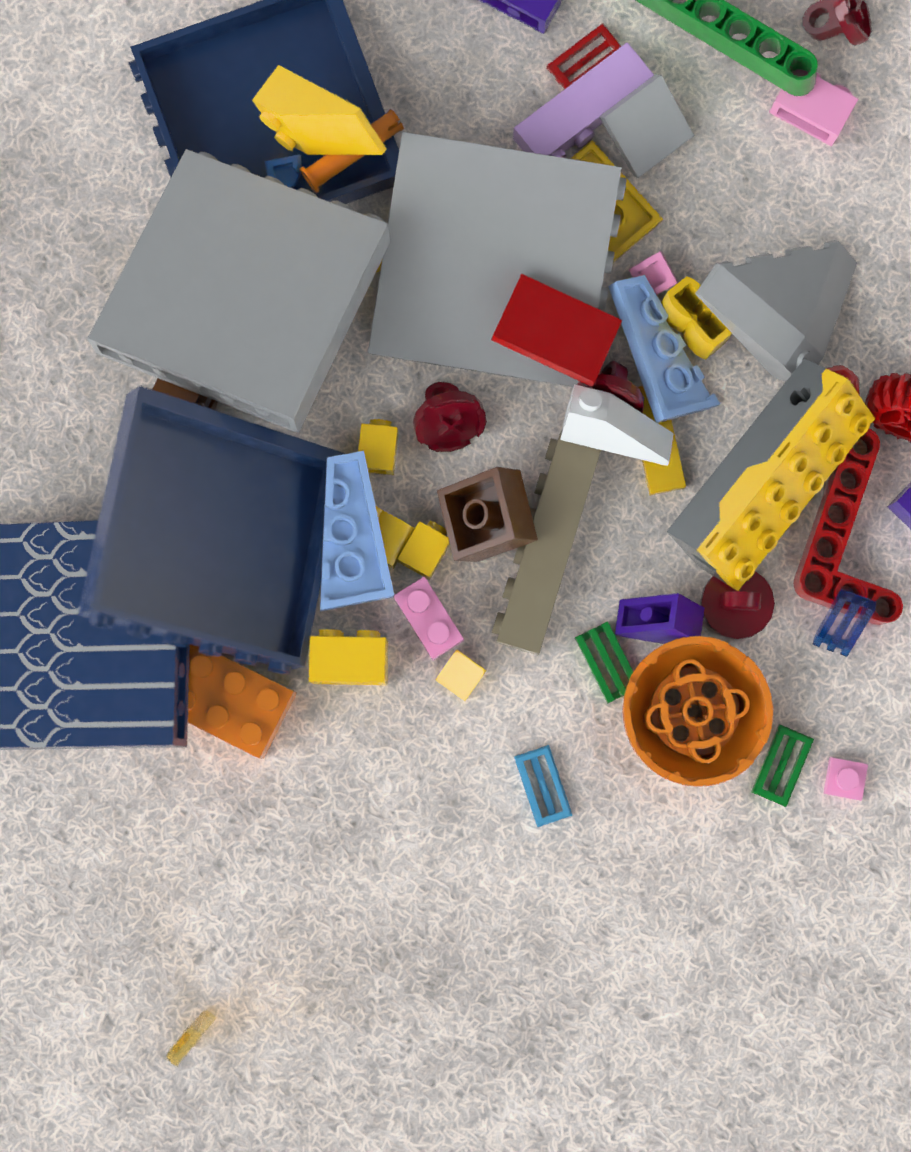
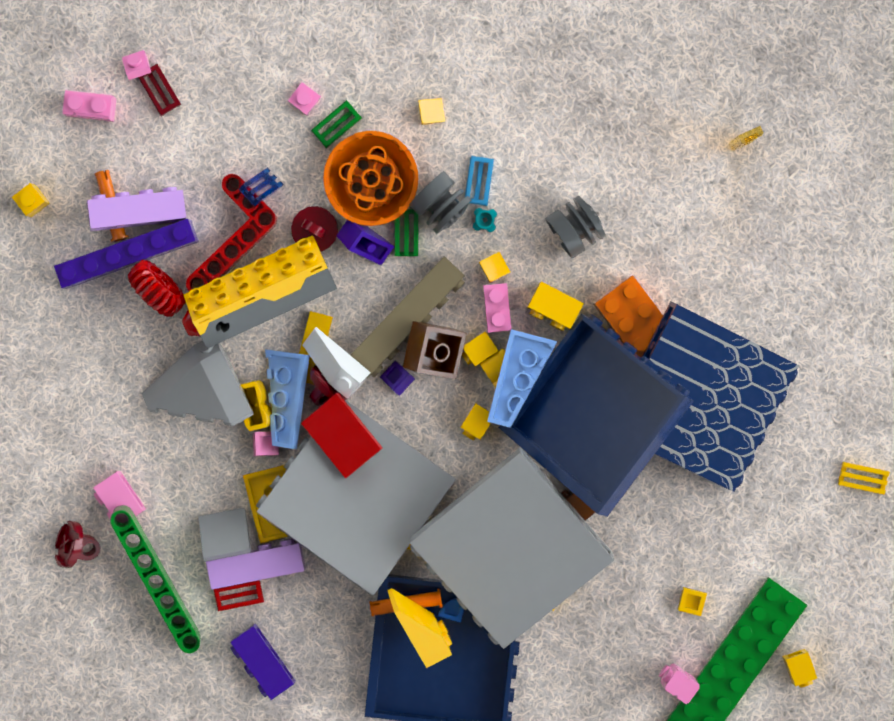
camera: 150 degrees left, 5 degrees up
(374, 788) = (576, 226): none -> dark grey wheel
(448, 418) = (428, 417): dark red tile -> none
(497, 731) = (480, 214): none -> teal plate
(516, 453) = (397, 378): none -> dark purple slope
(582, 726) = (440, 202): none -> dark grey wheel
(659, 851) = (431, 111): none -> yellow slope

